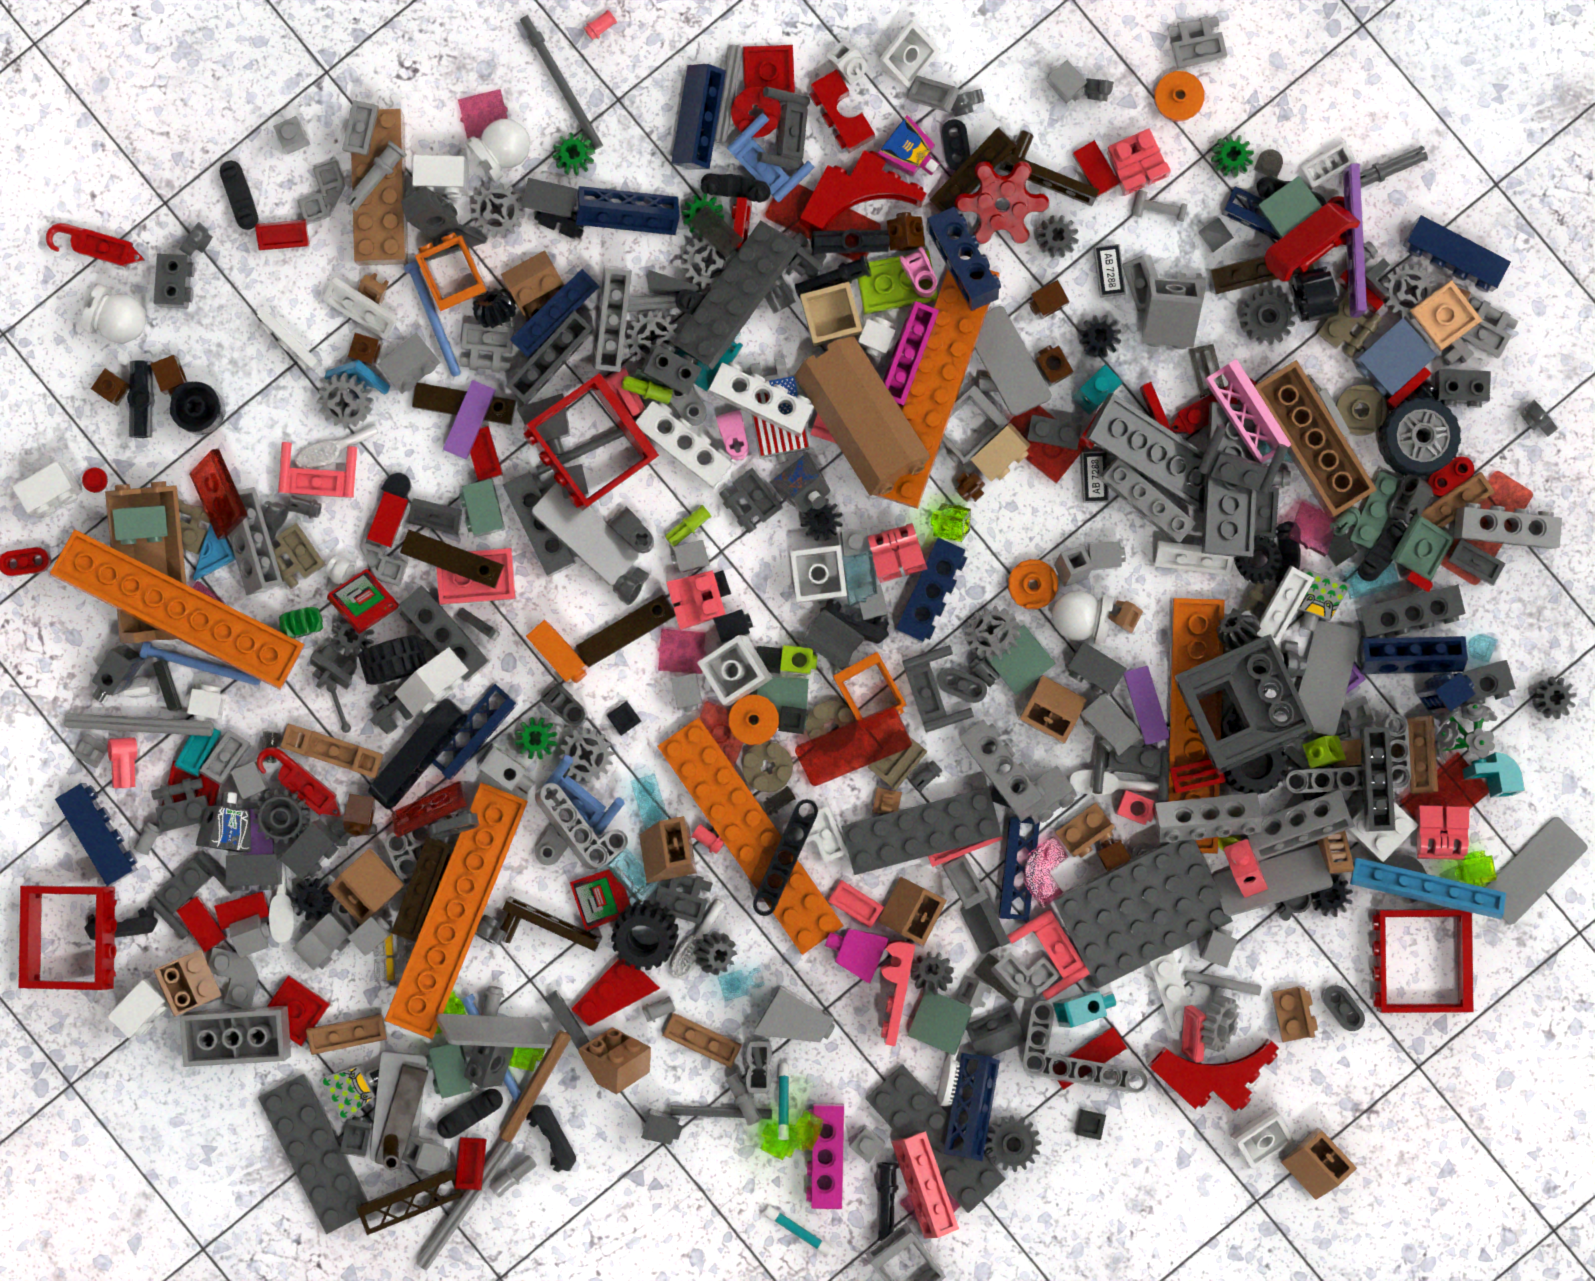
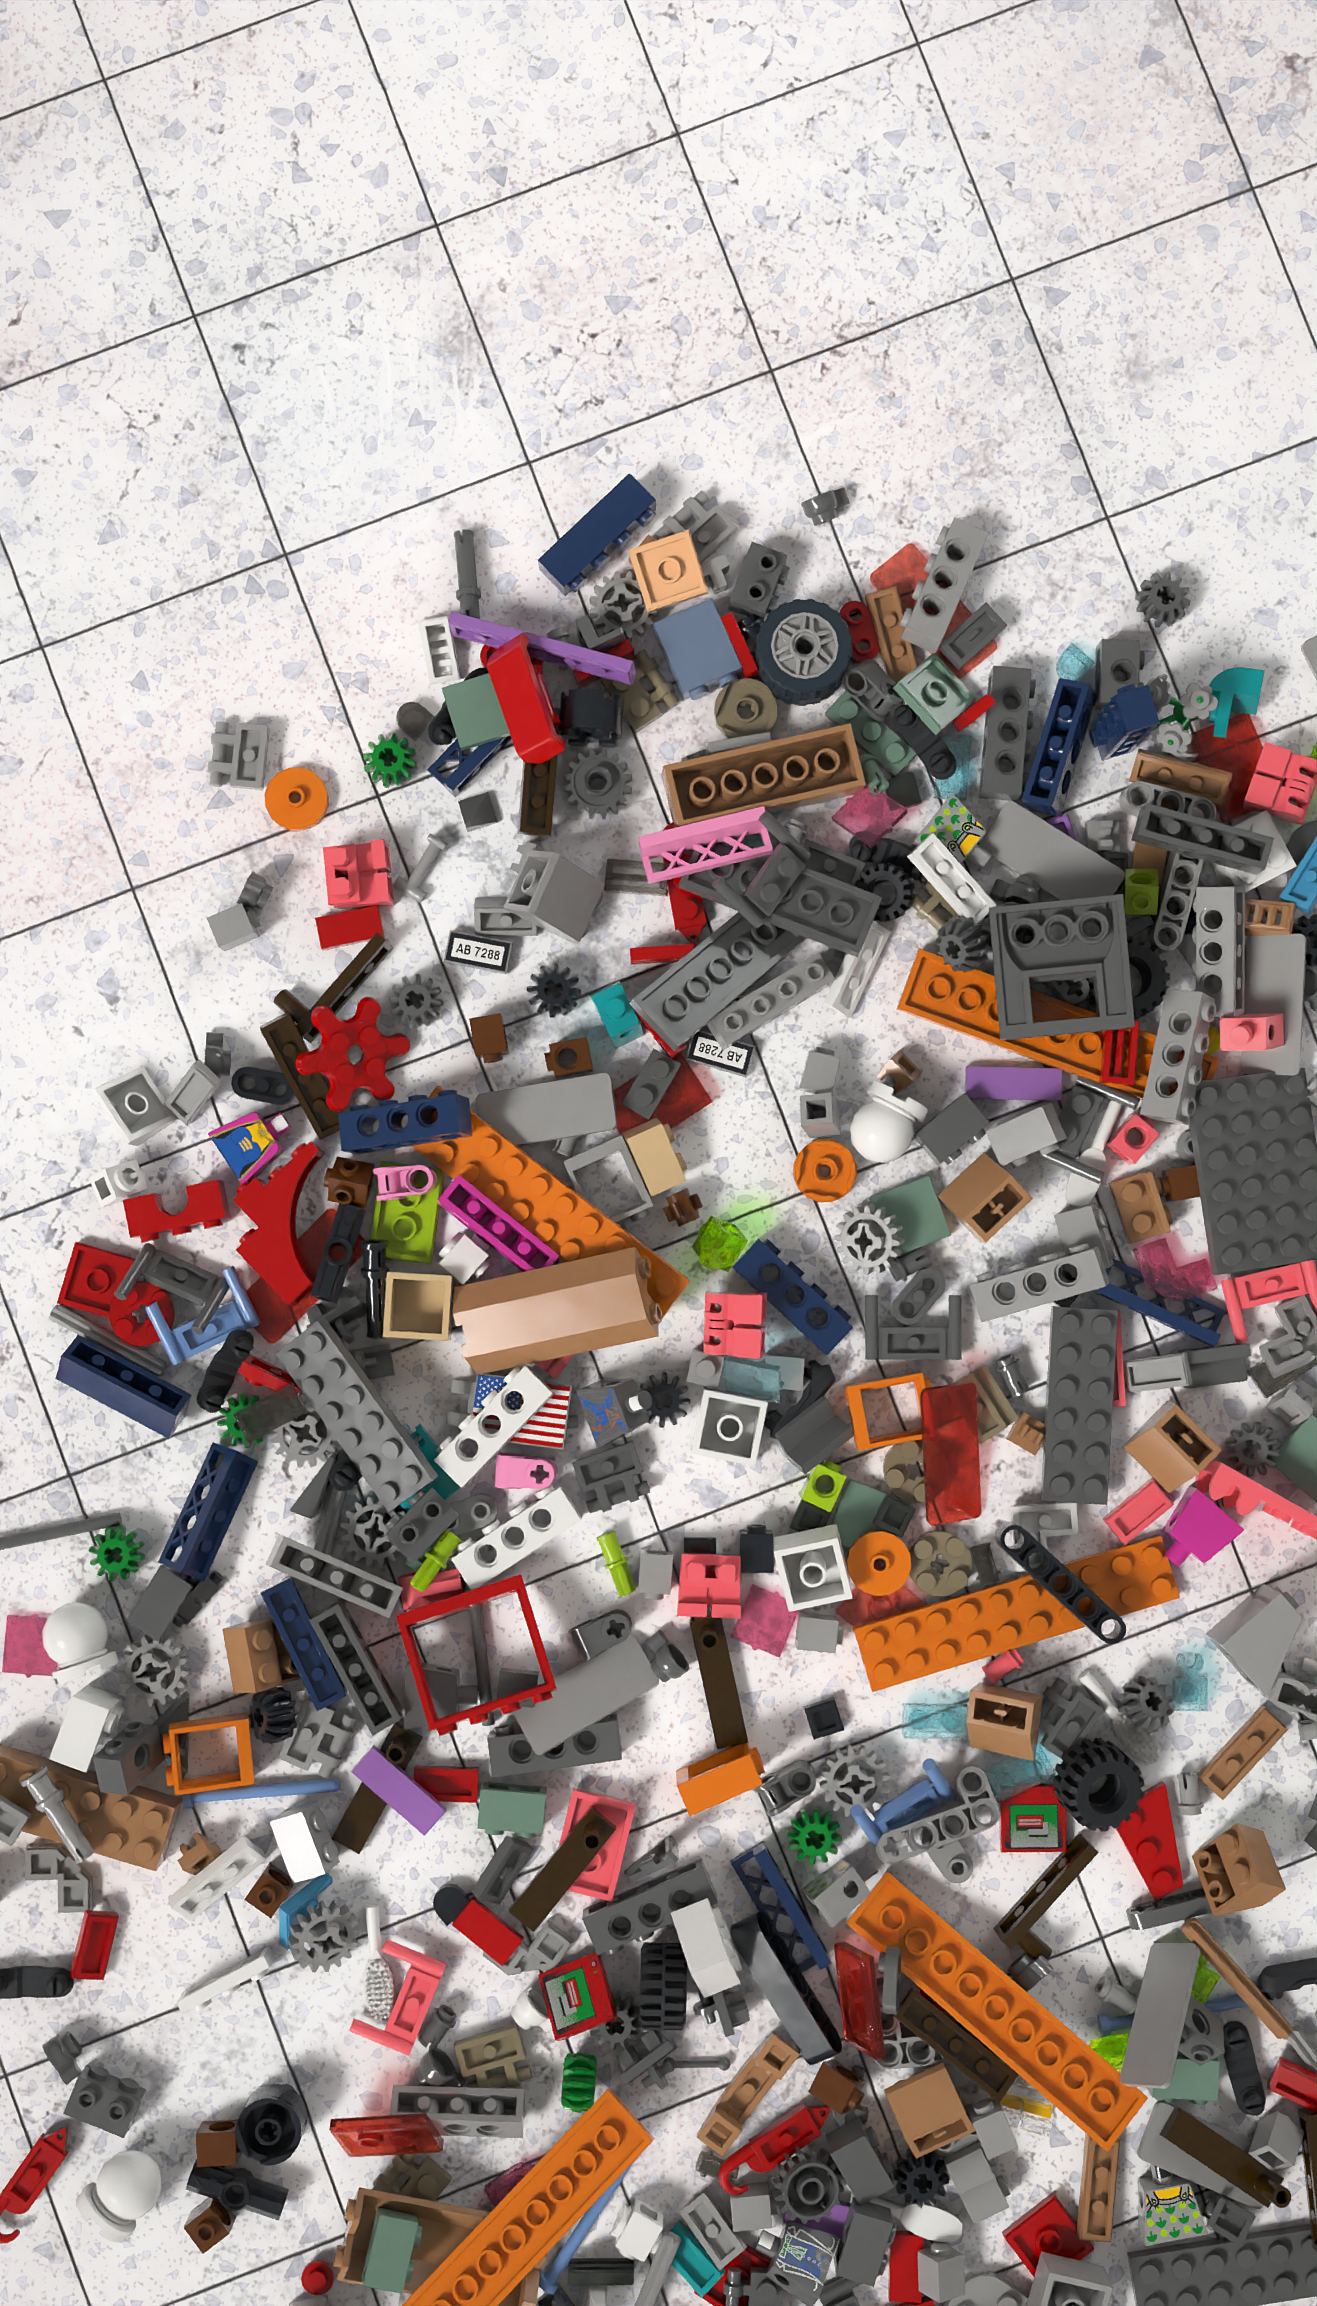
camera: 75 degrees left, 0 degrees up
(213, 555) = (460, 2160): dark azure tile -> none

